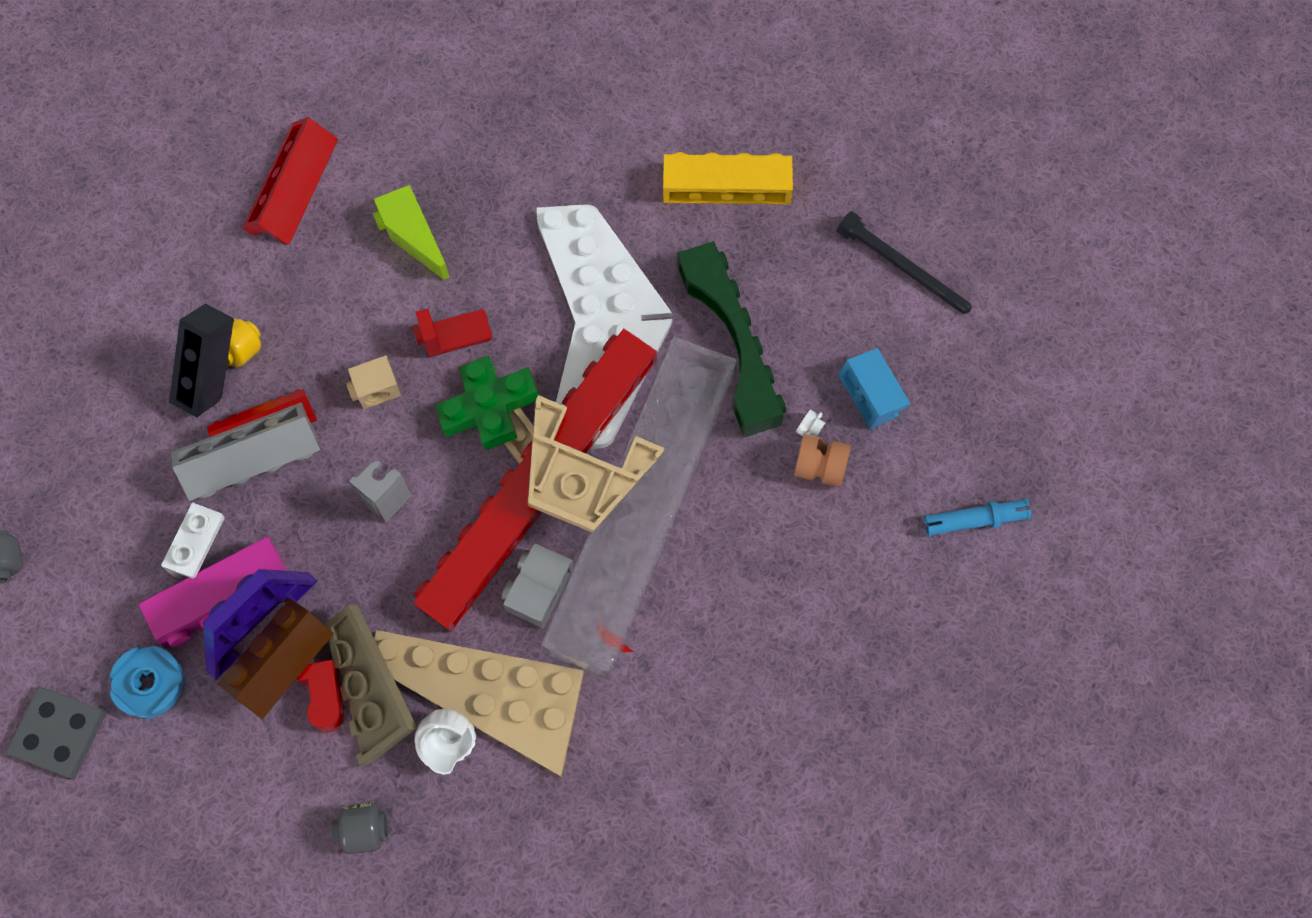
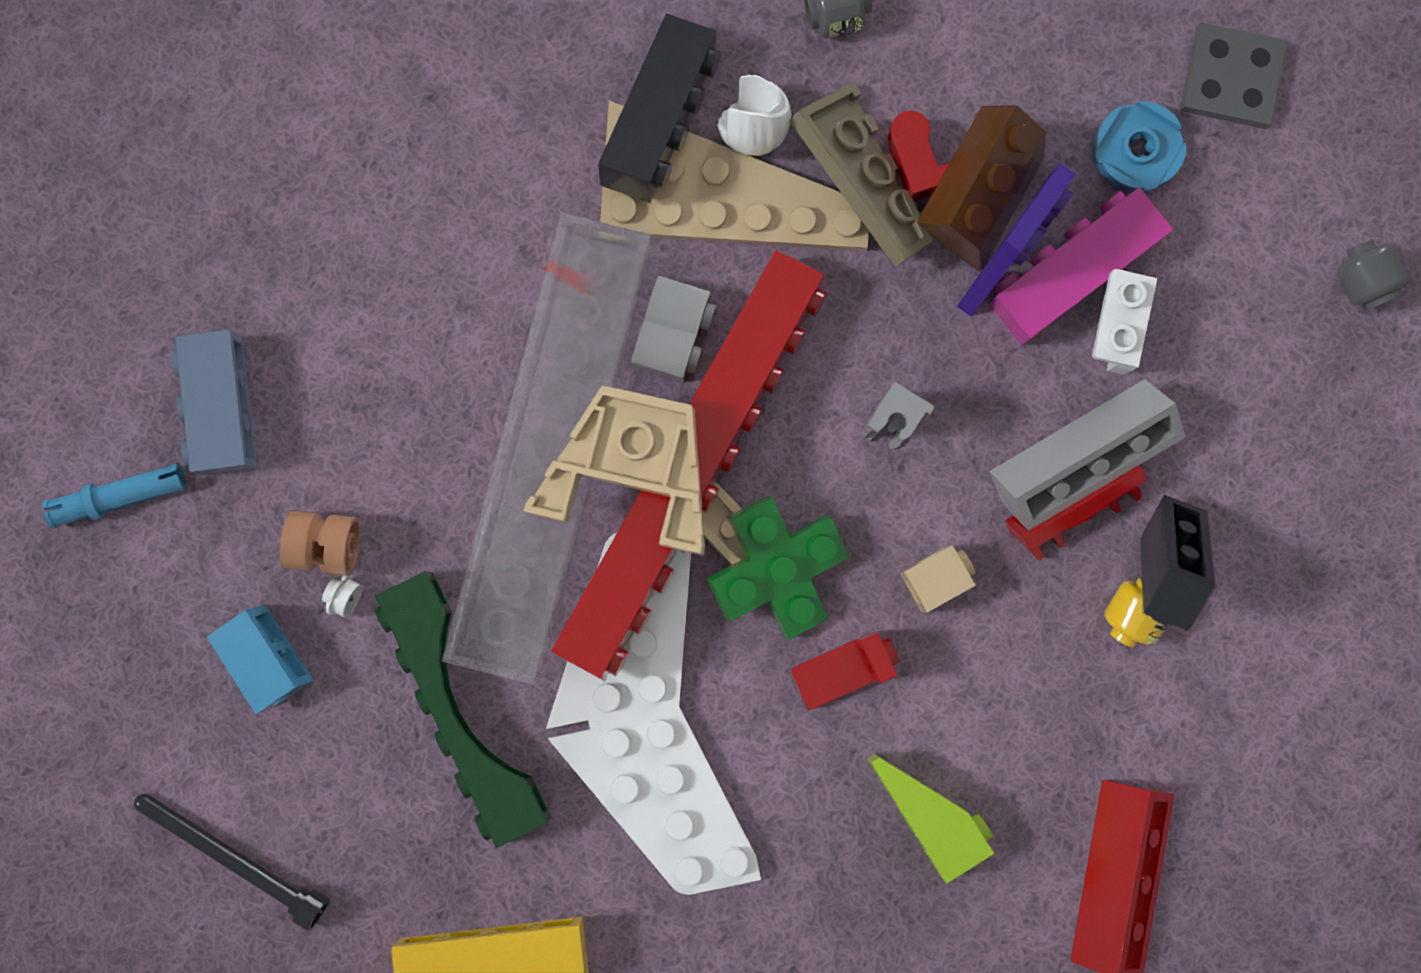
camera: 175 degrees right, 15 degrees up
(518, 756) = (658, 109): none -> black brick
(897, 573) = (214, 403): none -> sand blue brick

